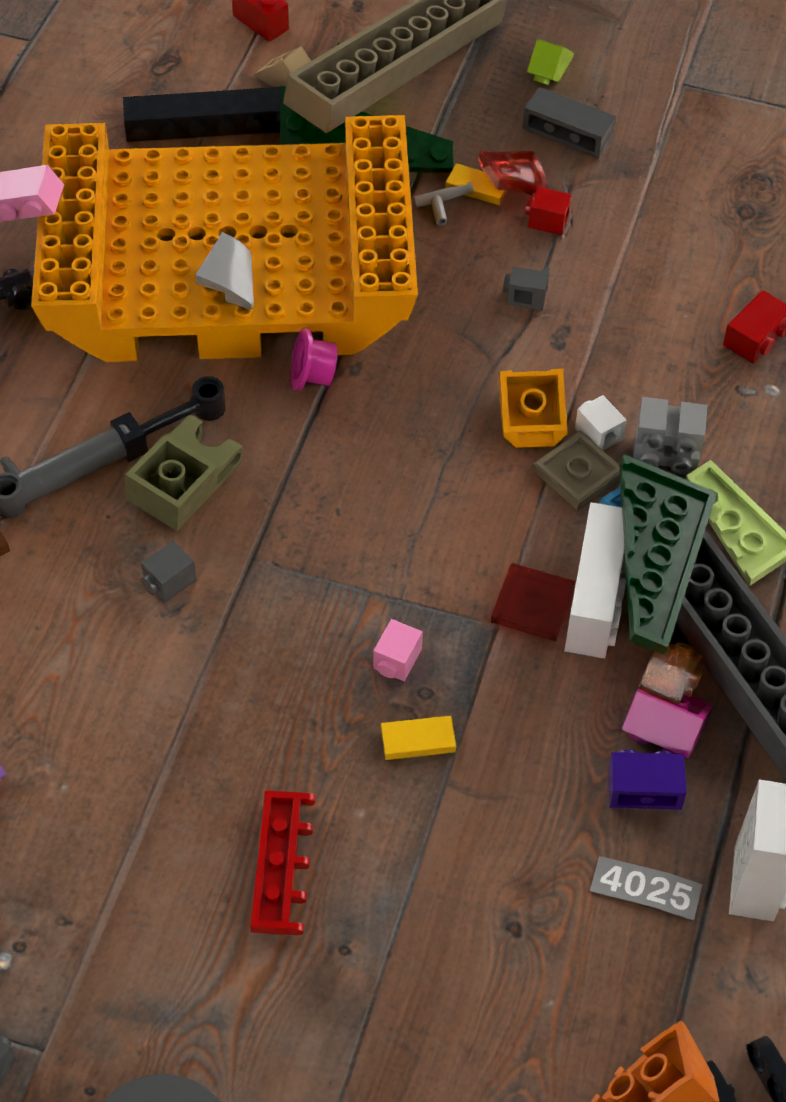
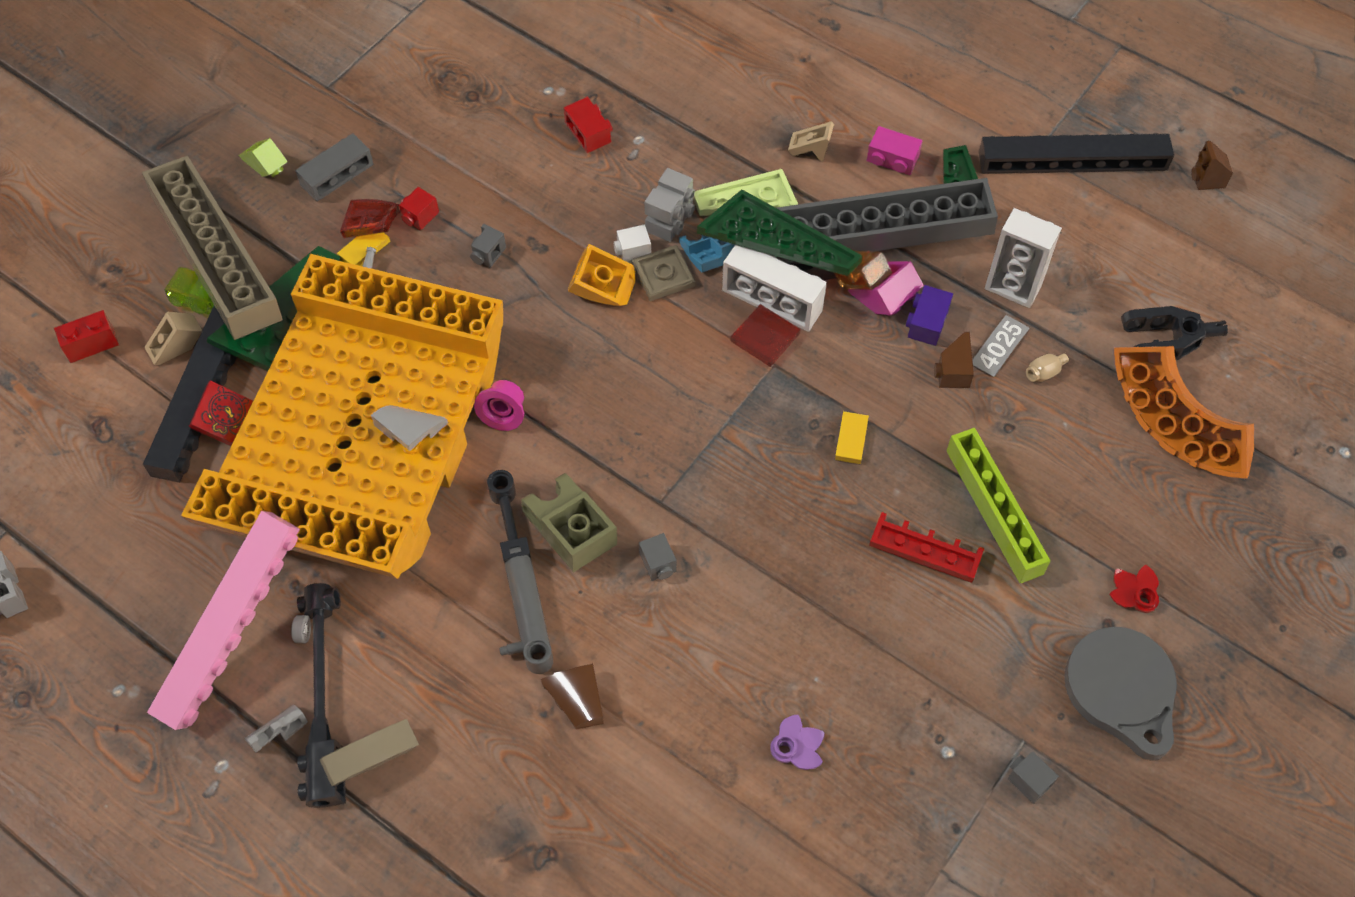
camera: 70 degrees left, 5 degrees up
(207, 128) = (220, 413): none -> red tile
(367, 928) = (998, 505): none -> lime brick
(397, 650) = (781, 427): bright pink brick -> none
(583, 830) = (956, 364): none -> reddish brown slope
(629, 952) = (1046, 367): none -> tan plant

